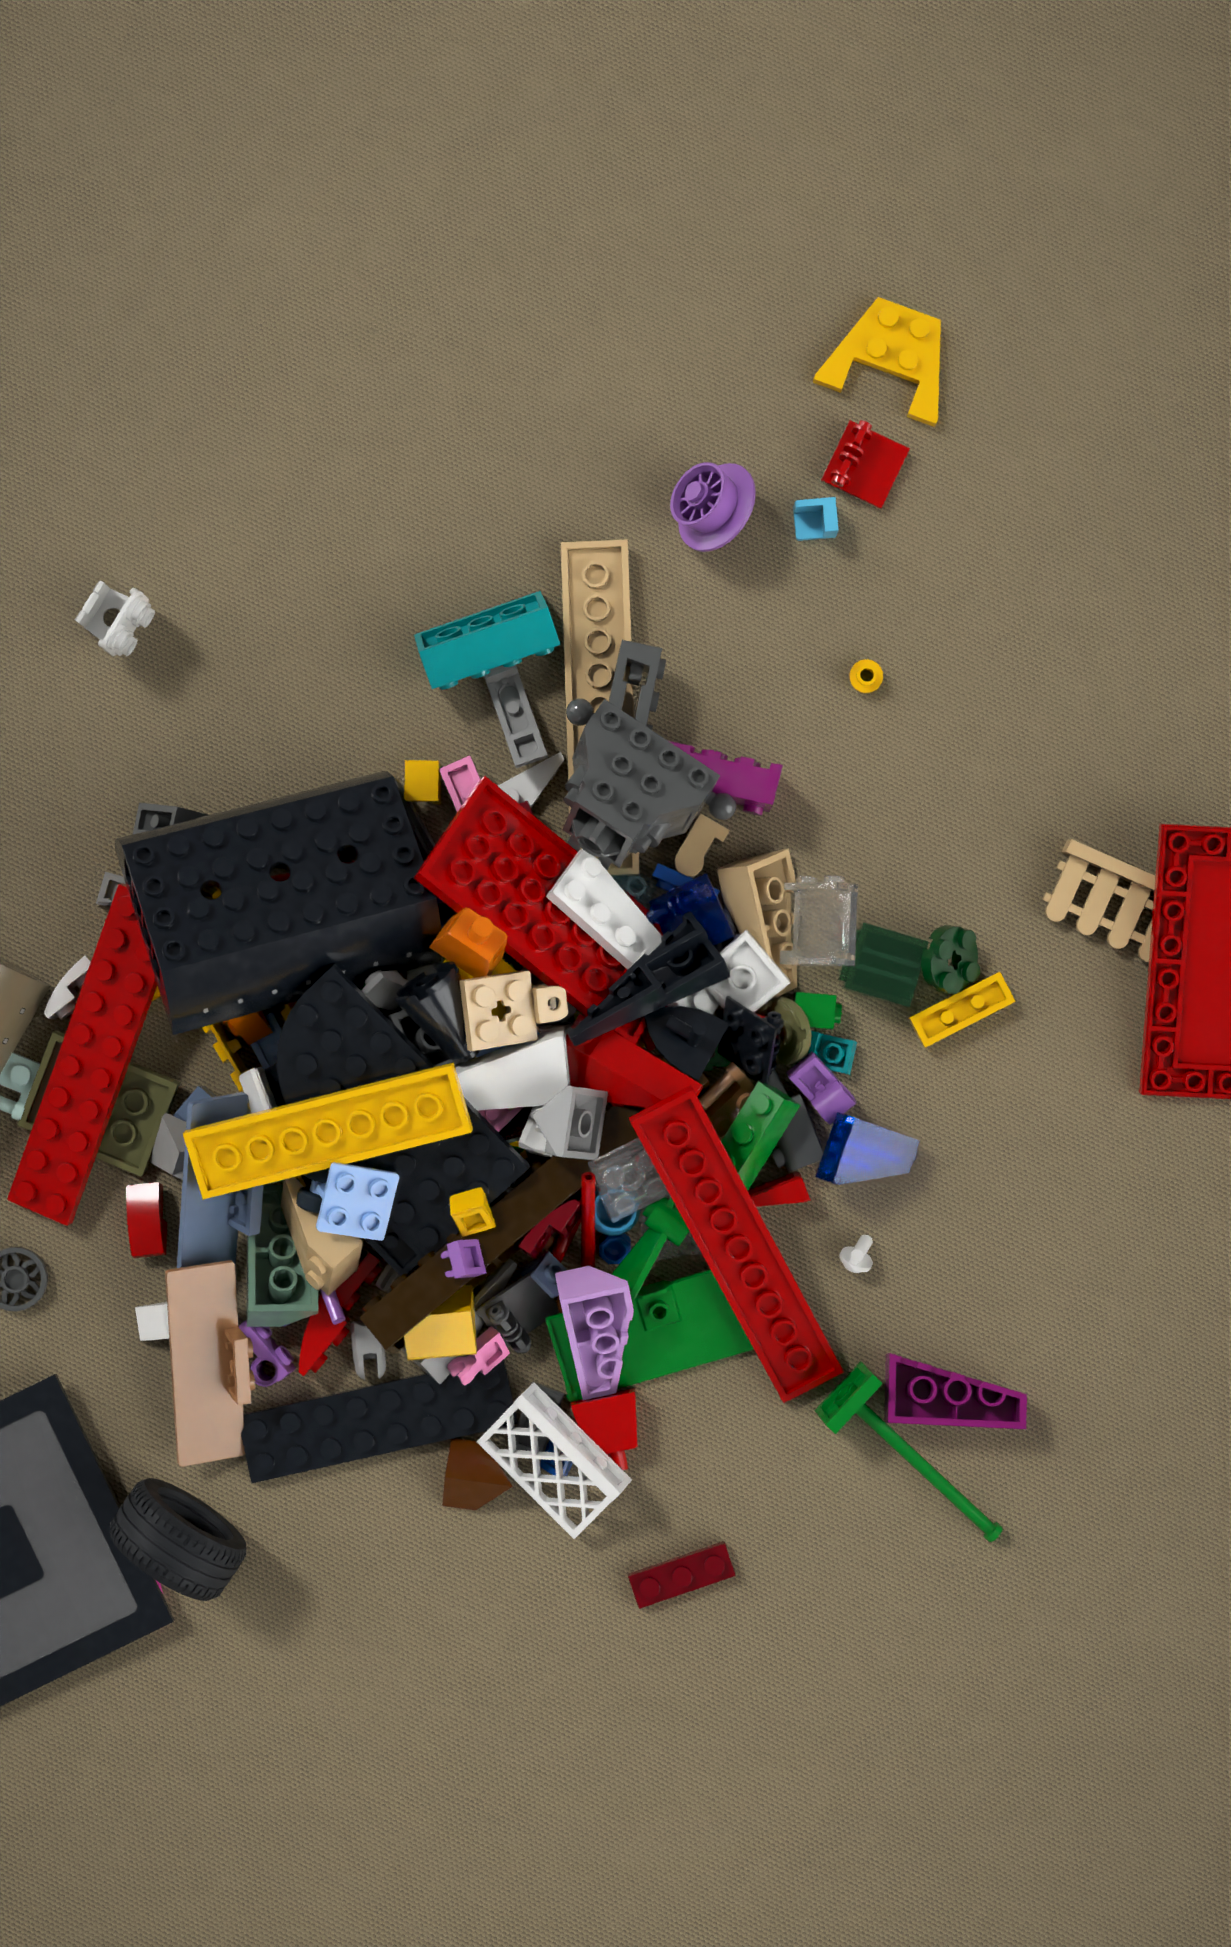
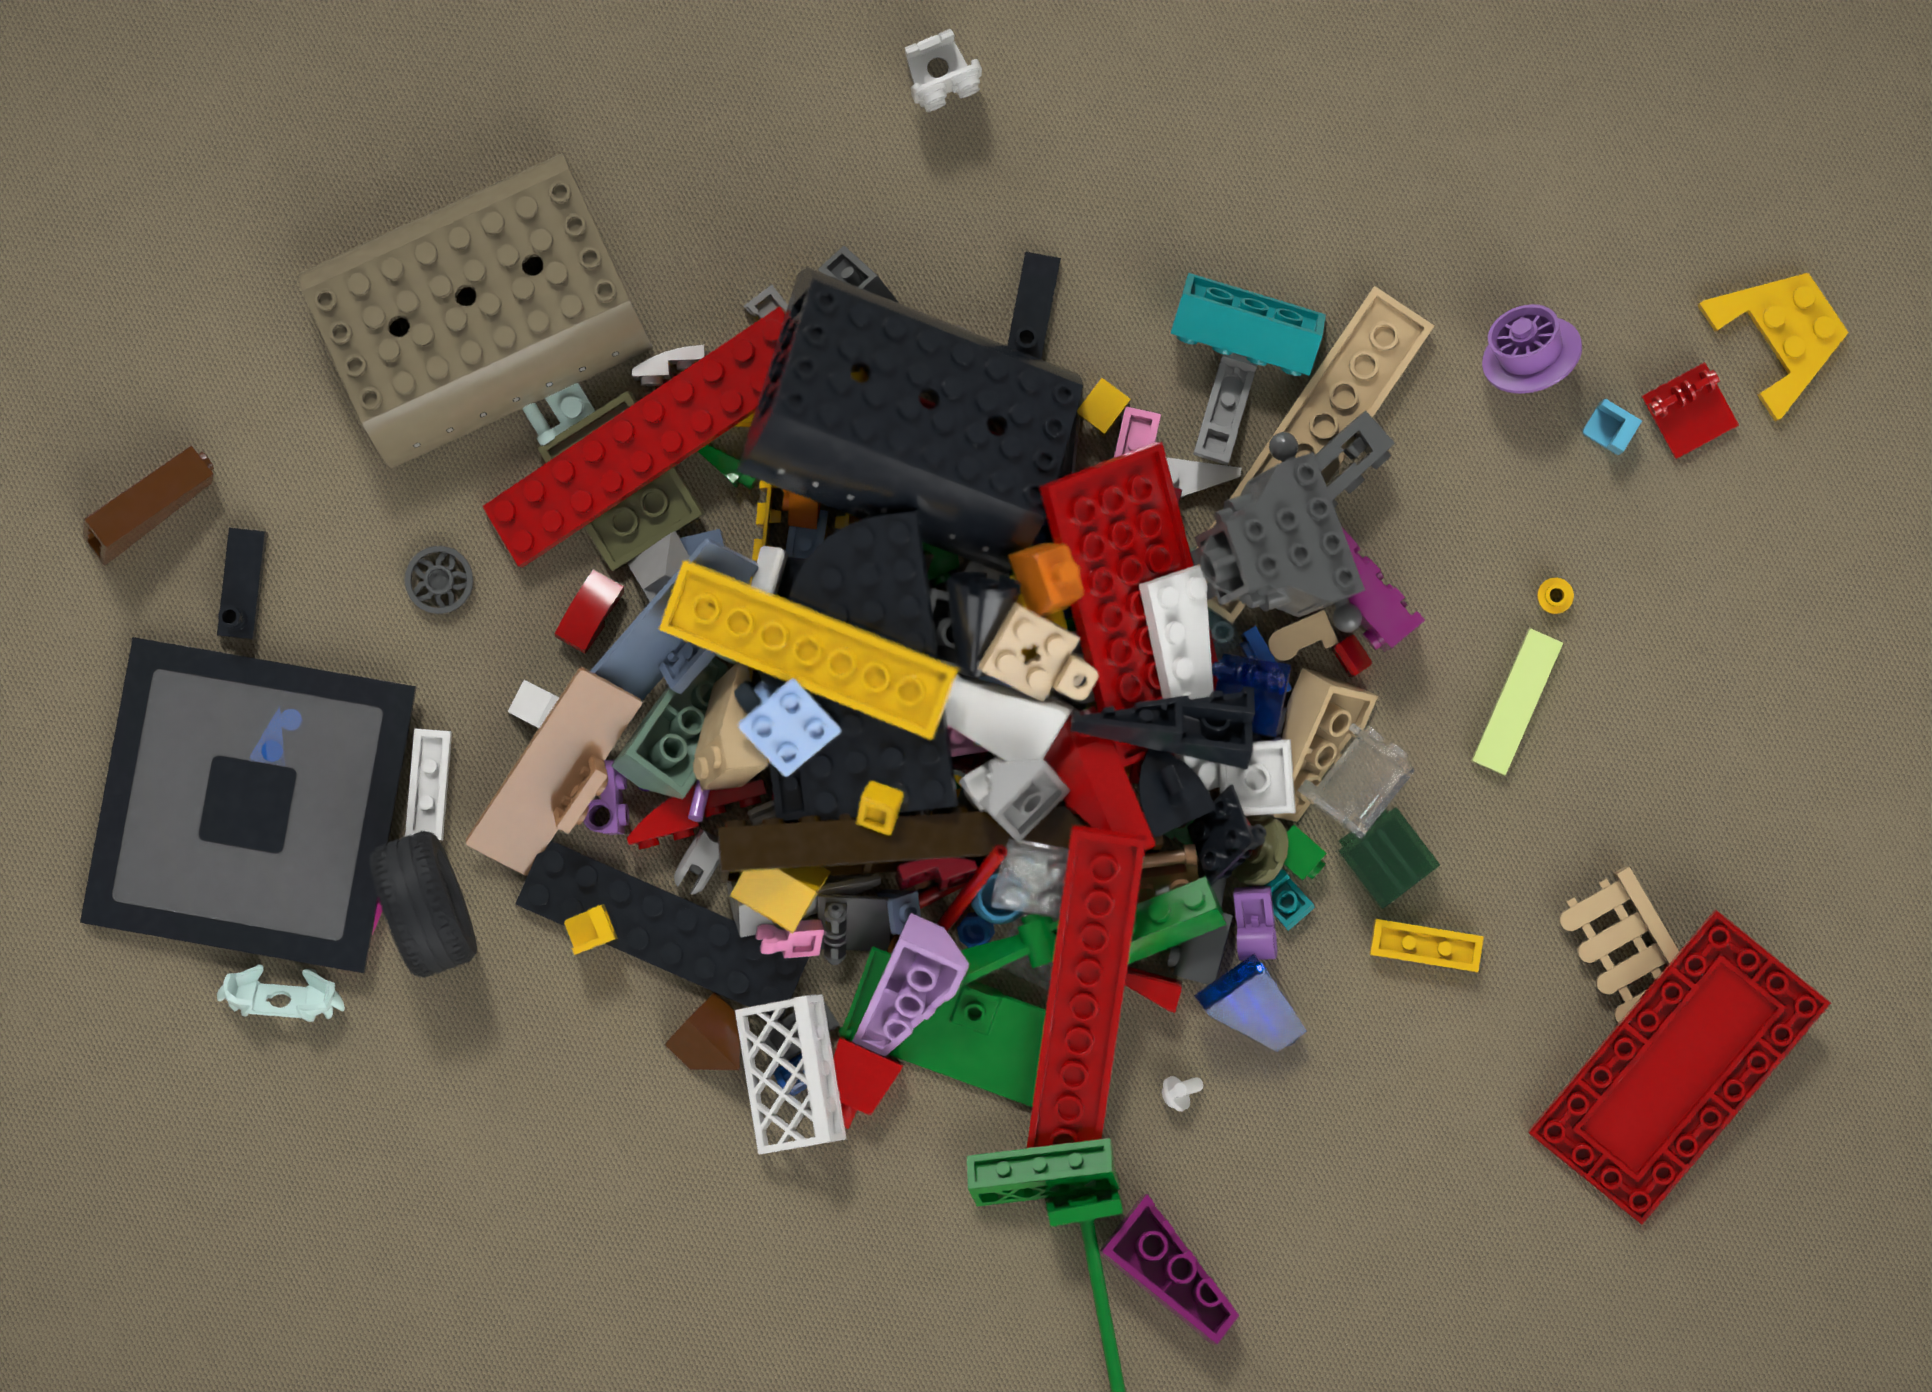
camera: 30 degrees right, 0 degrees up
(100, 1701) = (306, 1002): none -> light aqua piece
(119, 1439) = (428, 782): none -> white plate
(164, 1033) = (727, 466): none -> green piece
(314, 741) = (1033, 303): none -> black piece
(322, 1461) = (590, 929): none -> yellow panel
(382, 989) = (943, 561): light grey slope -> none
(465, 1259) = (845, 843): medium lavender tile -> none
(681, 1574) = (827, 1254): dark red plate -> none
(746, 832) = (1352, 656): none -> red slope
(798, 1394) = (1042, 1172): none -> green fence
(895, 776) = (1517, 701): none -> yellowish green tile
(964, 967) = (1458, 906): dark green plate -> none

